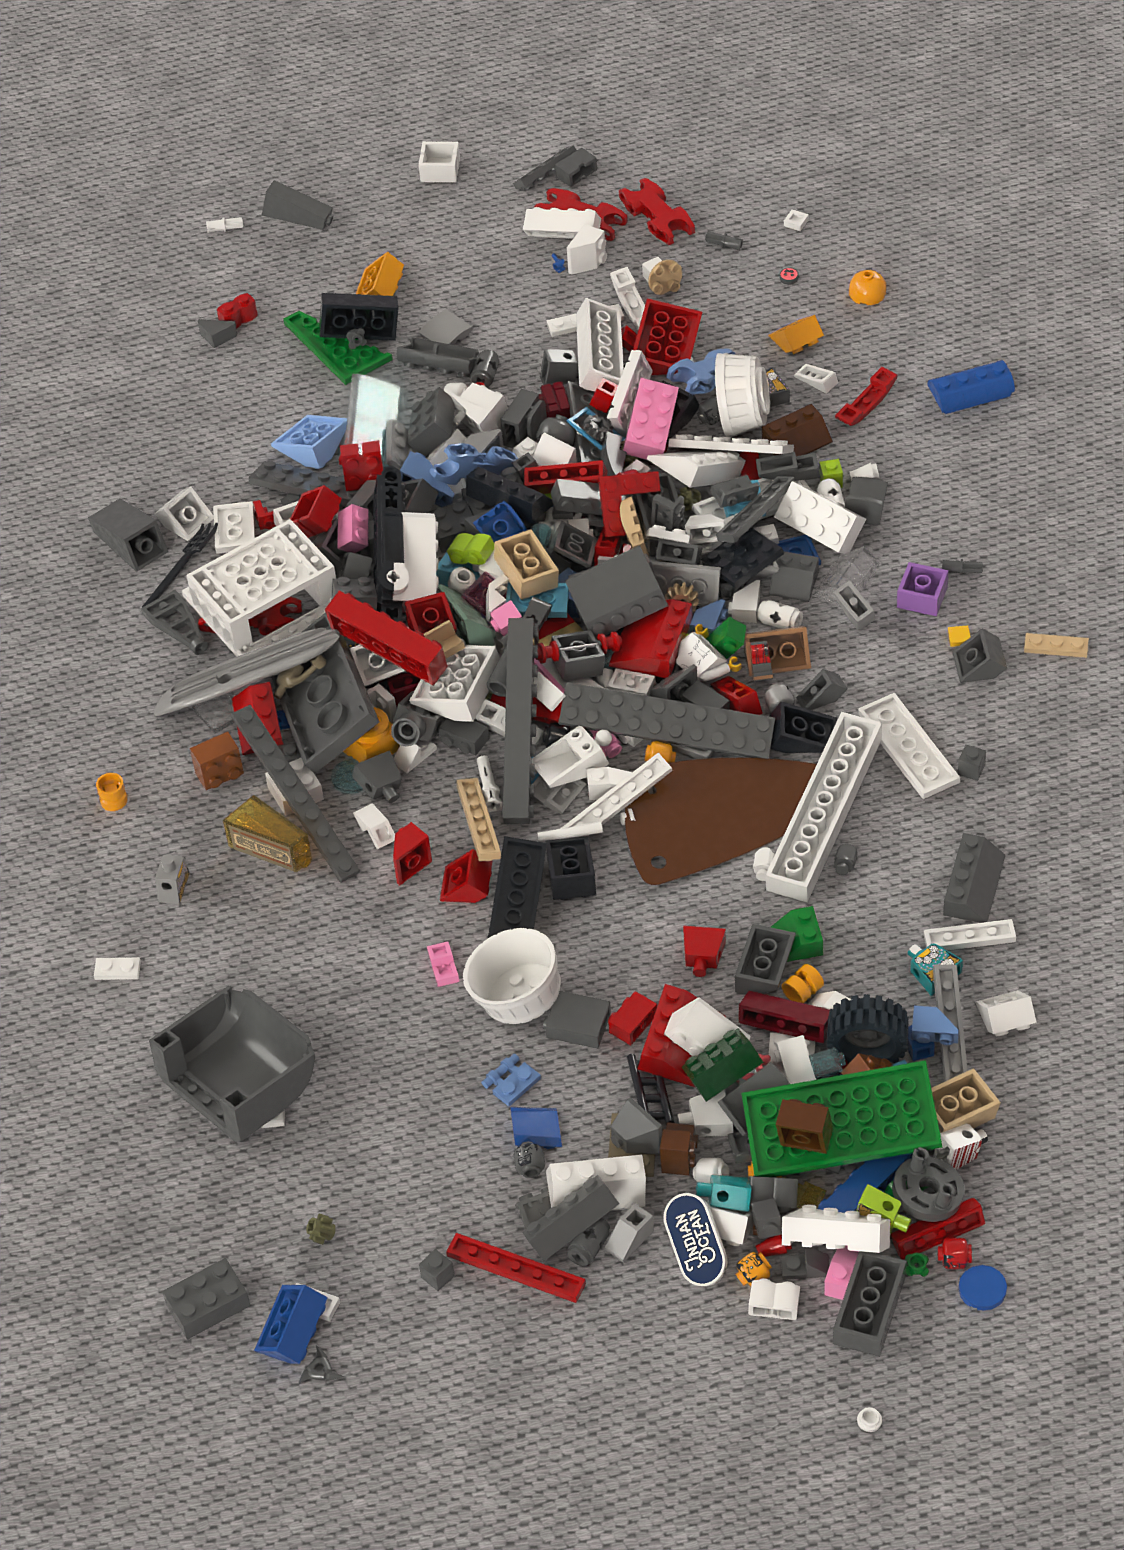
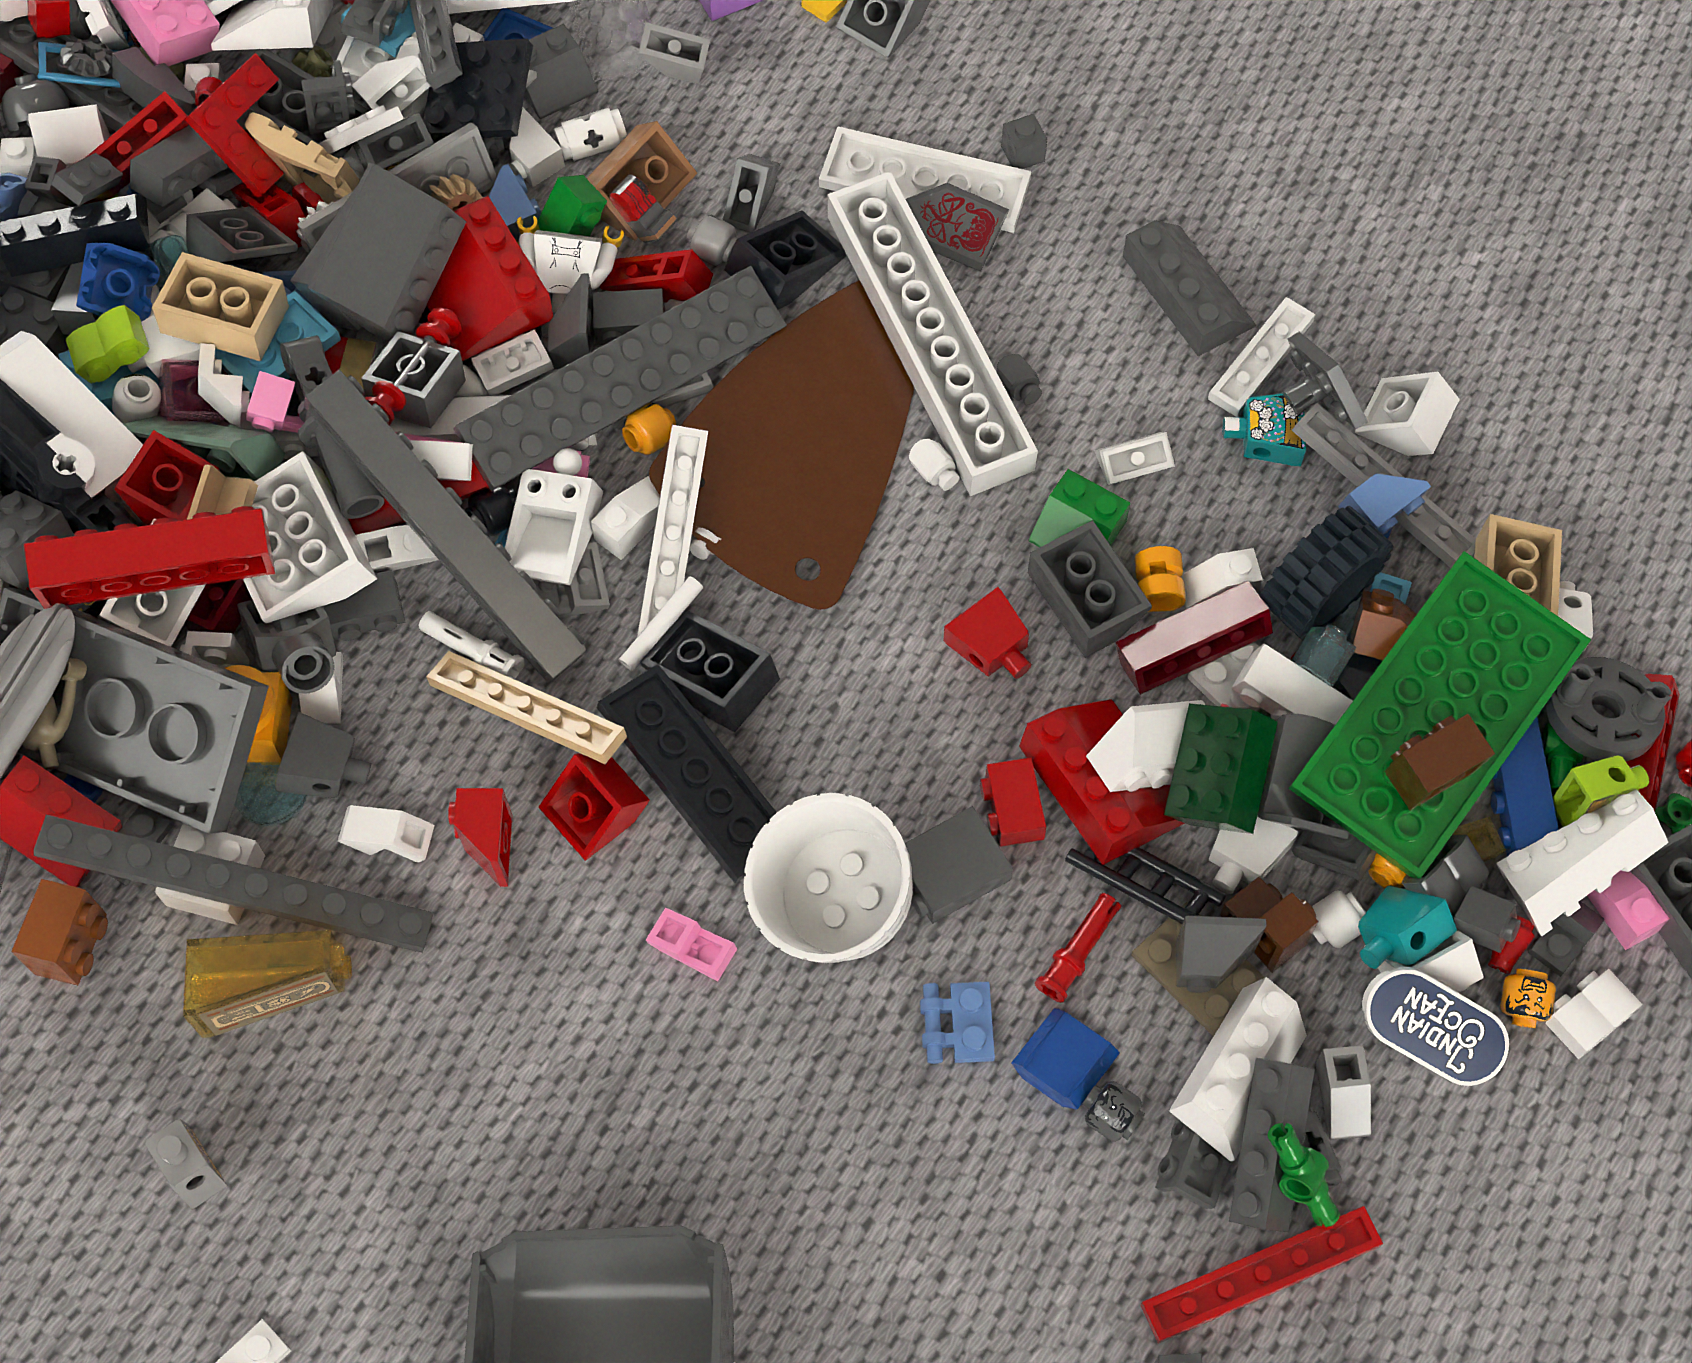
camera: 50 degrees left, 15 degrees up
(531, 474) = (87, 179): none -> dark grey plate
(566, 1234) = (1303, 1174): none -> green pin
(581, 1095) = (1069, 961): none -> red pin
(858, 932) = (1135, 457): none -> white slope
(897, 773) = (958, 223): none -> dark grey tile
(970, 958) = (1322, 383): none -> dark grey plate

